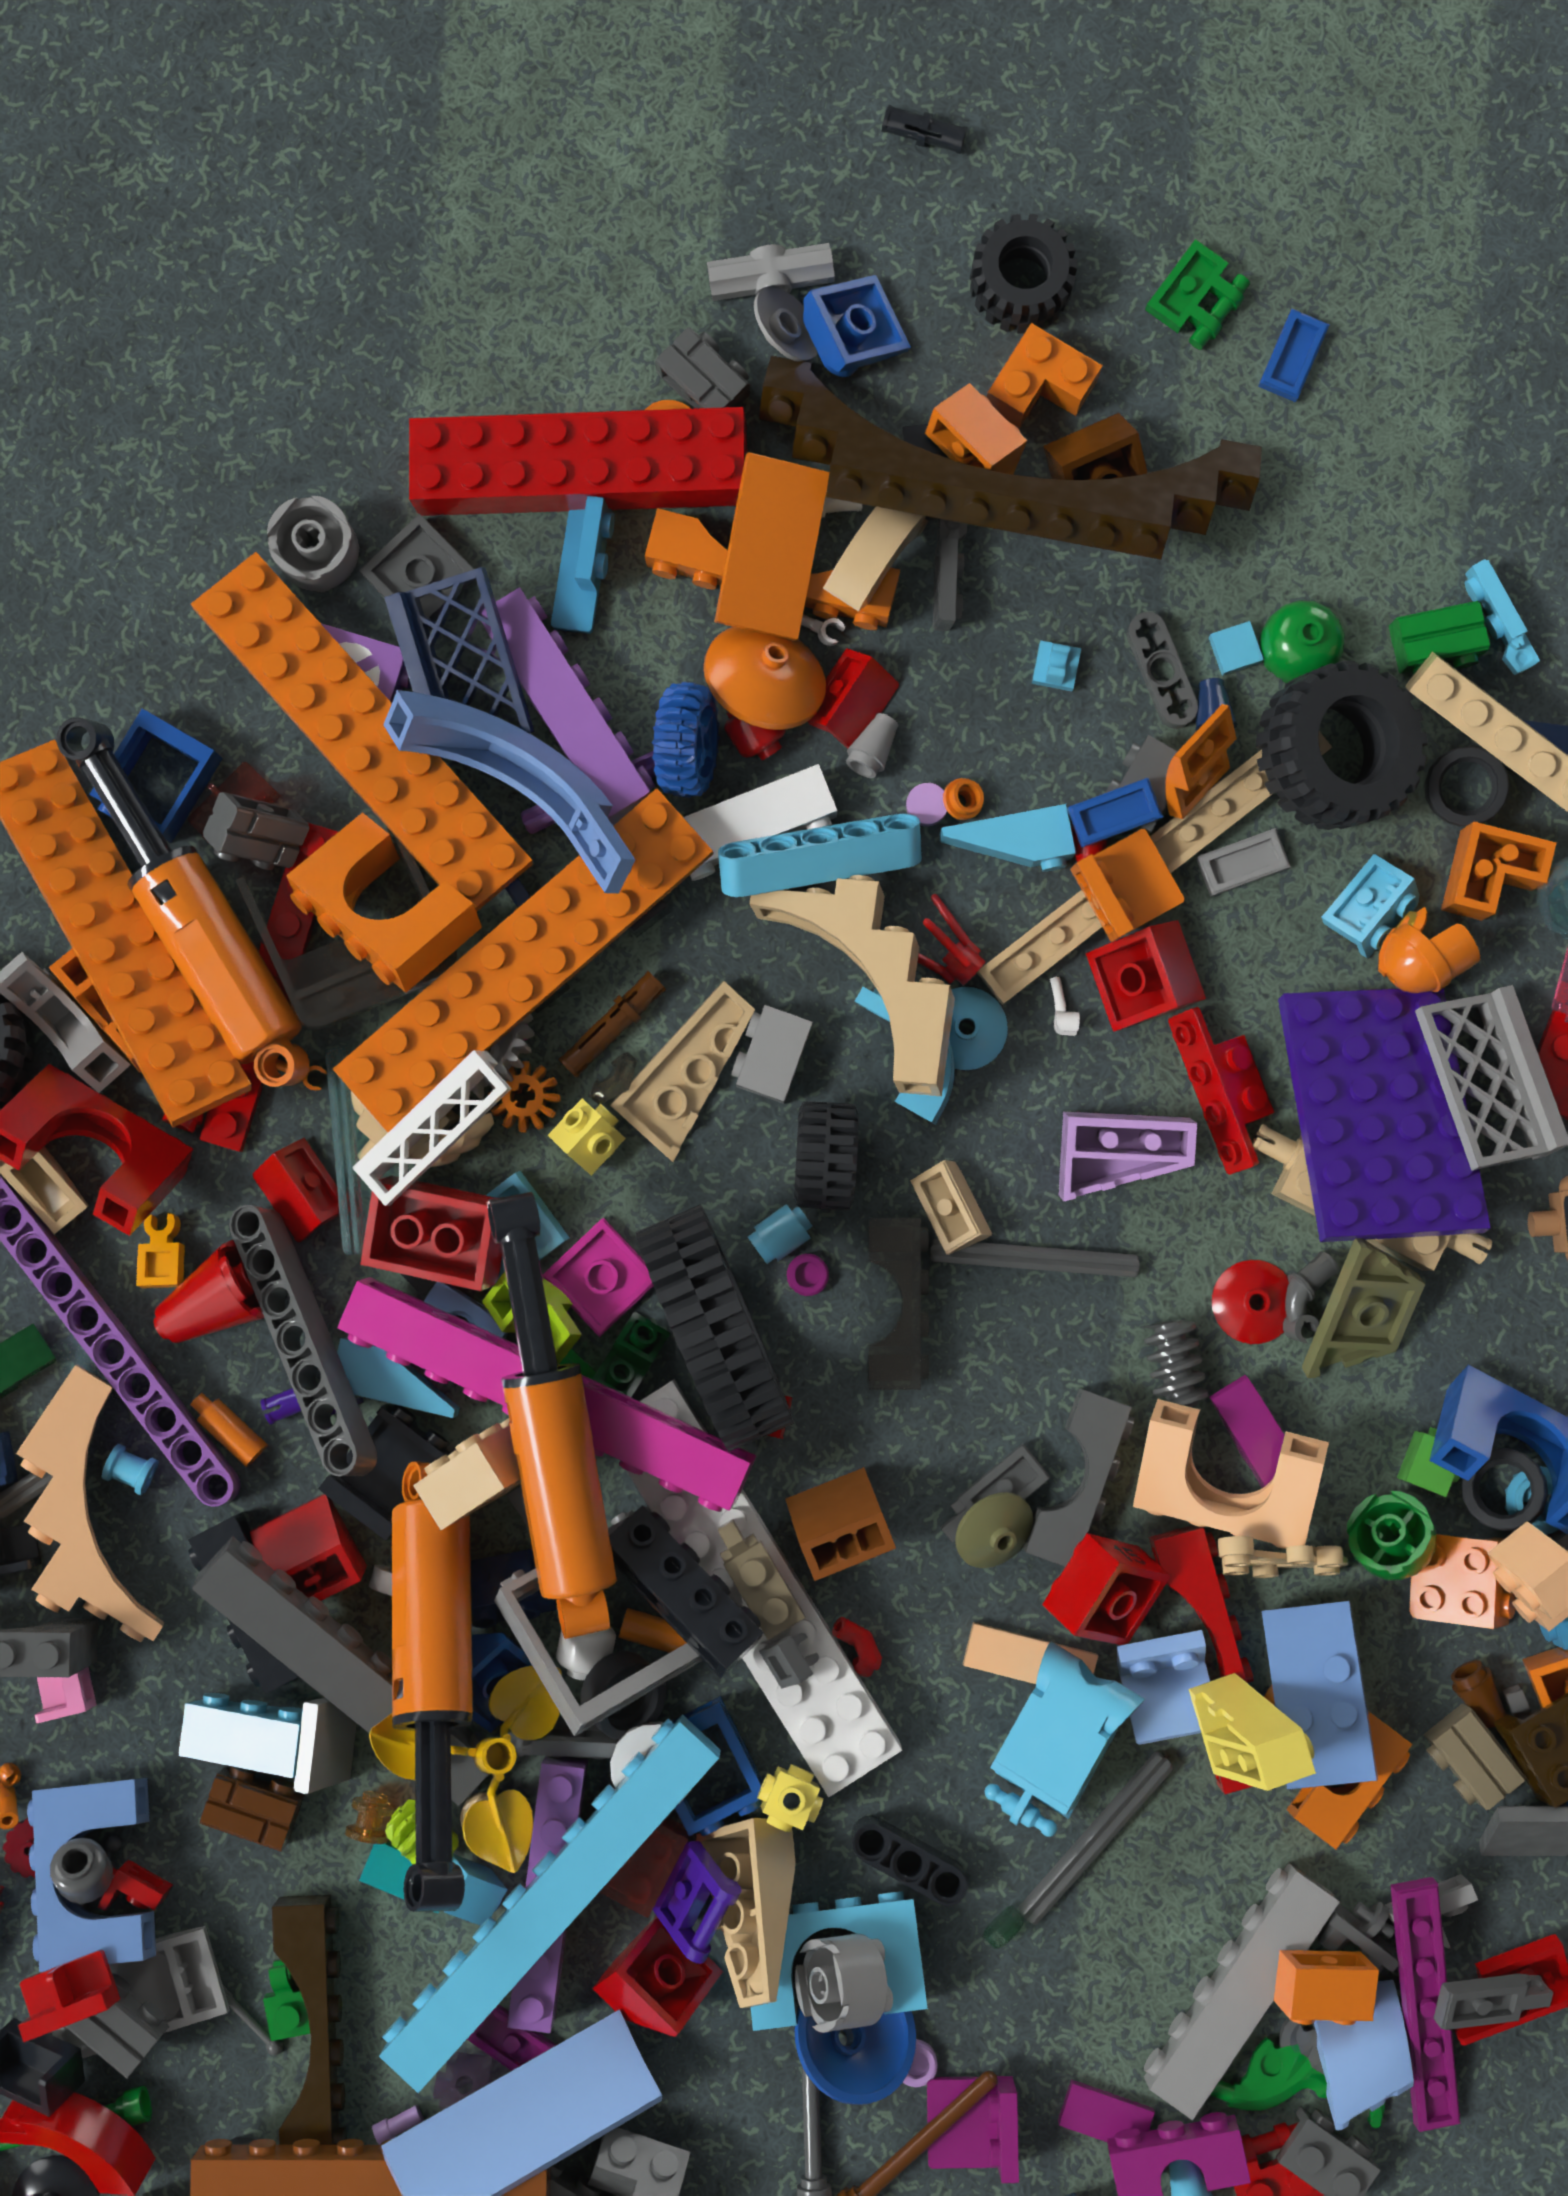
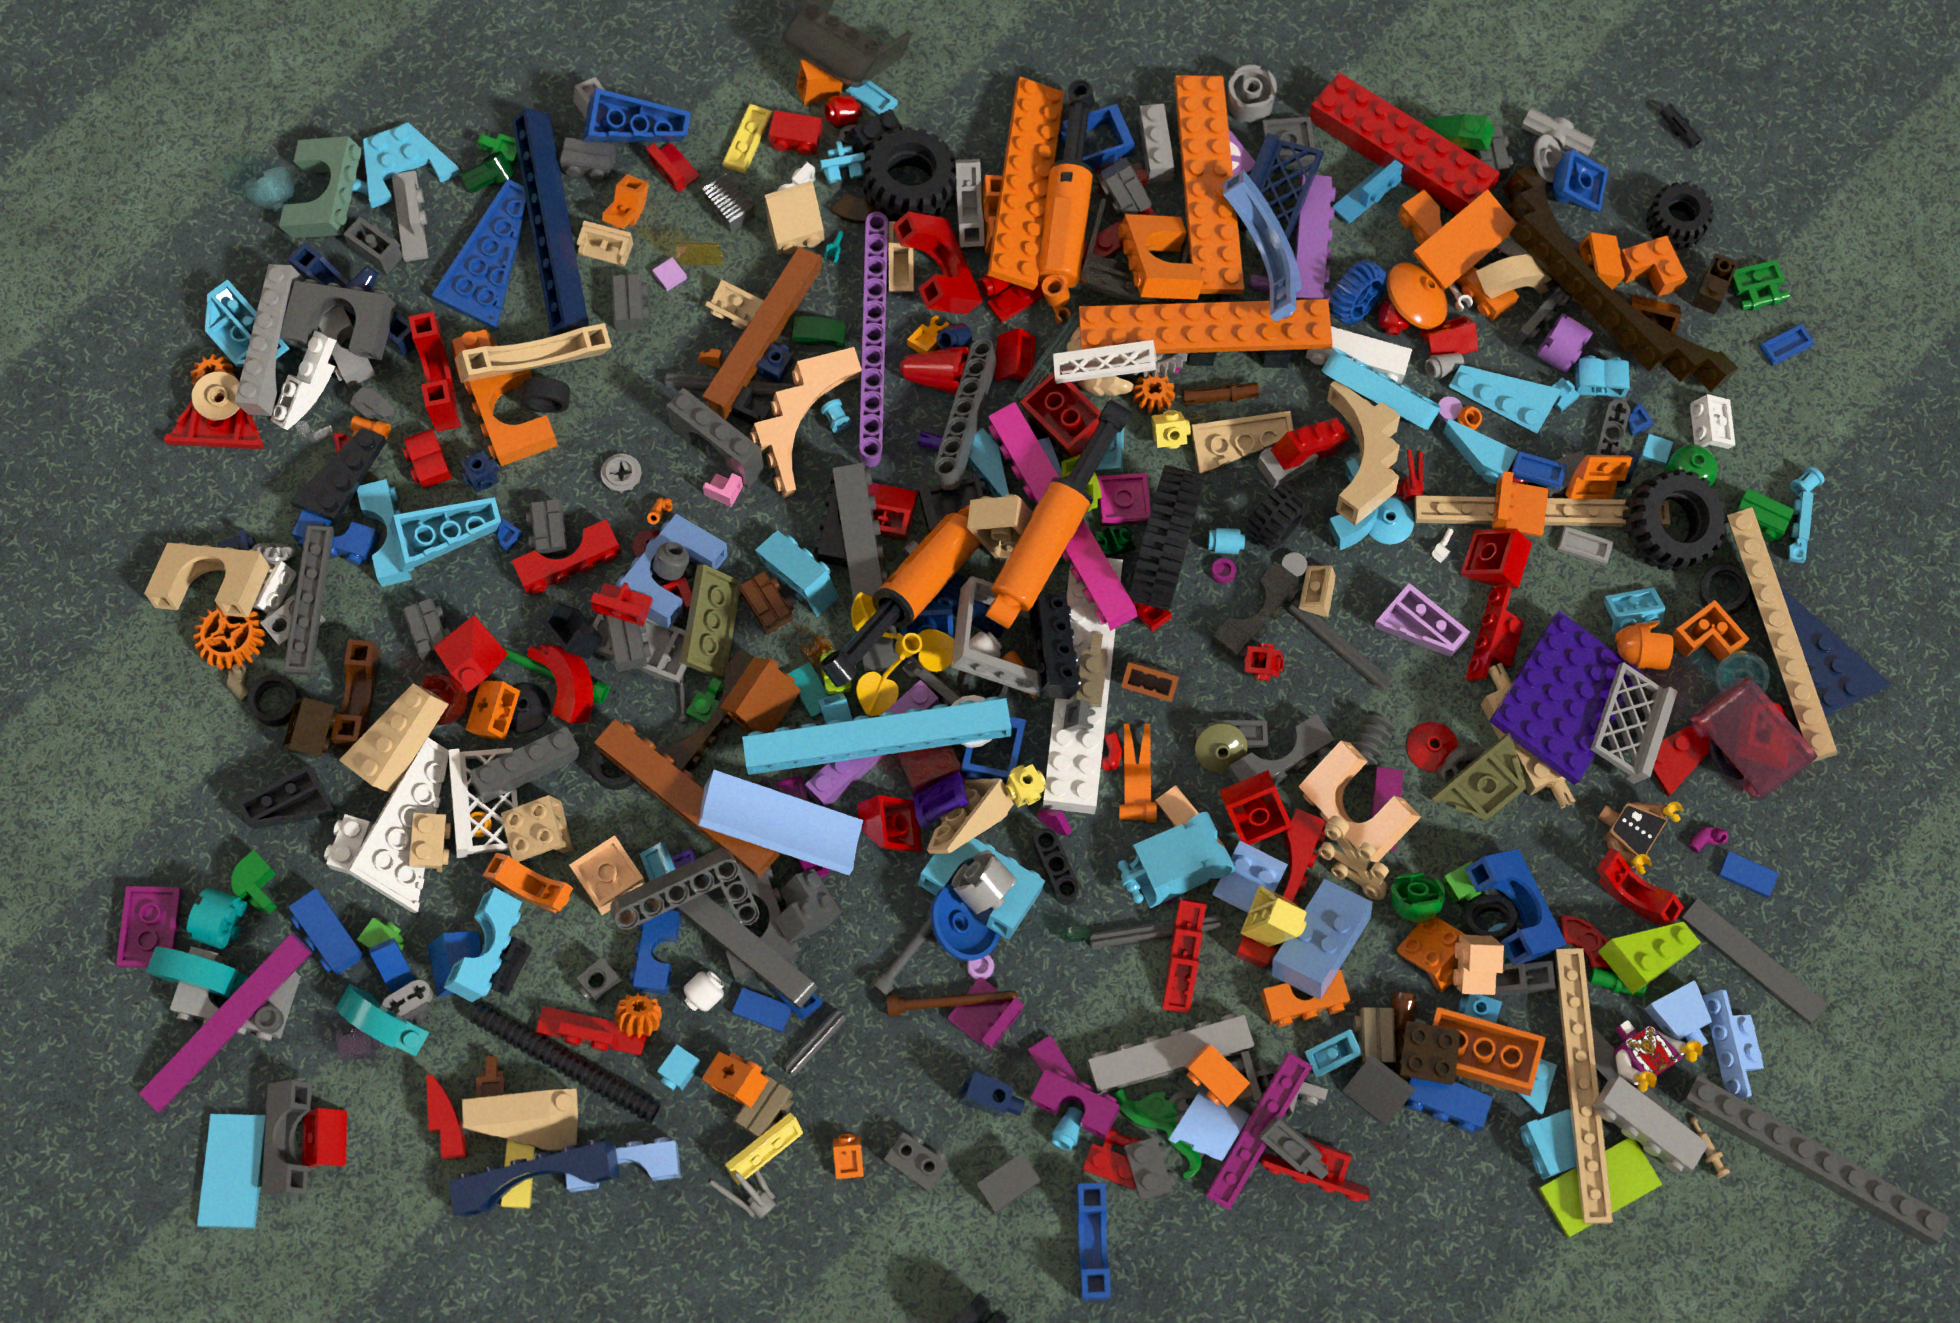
camera: 35 degrees right, 15 degrees down
(197, 1232) = (954, 336): none -> dark blue brick
(202, 1901) = (710, 621): none -> olive plate
(229, 1429) = (895, 434): orange cylinder -> none
(241, 721) = (1156, 143): none -> light grey brick
(324, 1747) = (827, 595): light grey tile -> none
(354, 1956) = (761, 696): none -> dark orange brick
(641, 379) = (1464, 130): none -> green slope
(790, 1016) = (1320, 438): none -> red arch
(860, 1796) = (1055, 820): none -> magenta tile
(893, 1193) = (1295, 564): none -> light grey tile
(920, 1656) = (1137, 780): none -> orange flag
(960, 1369) = (1256, 658): none -> red brick
(992, 727) = (1511, 397): none -> medium azure wing
(1010, 593) = (1563, 343): none -> medium lavender brick
(1091, 599) = (1602, 377): none -> medium azure brick
(1142, 341) = (1715, 283): none -> dark brown slope
(1159, 1846) = (1184, 955): none -> red slope
(1182, 622) = (1639, 420): none -> blue tile
(1280, 551) = (1712, 422): none -> white bracket
(1440, 1825) = (1334, 1053): none -> medium azure slope
(1462, 542) = (1808, 481): none -> medium azure bush

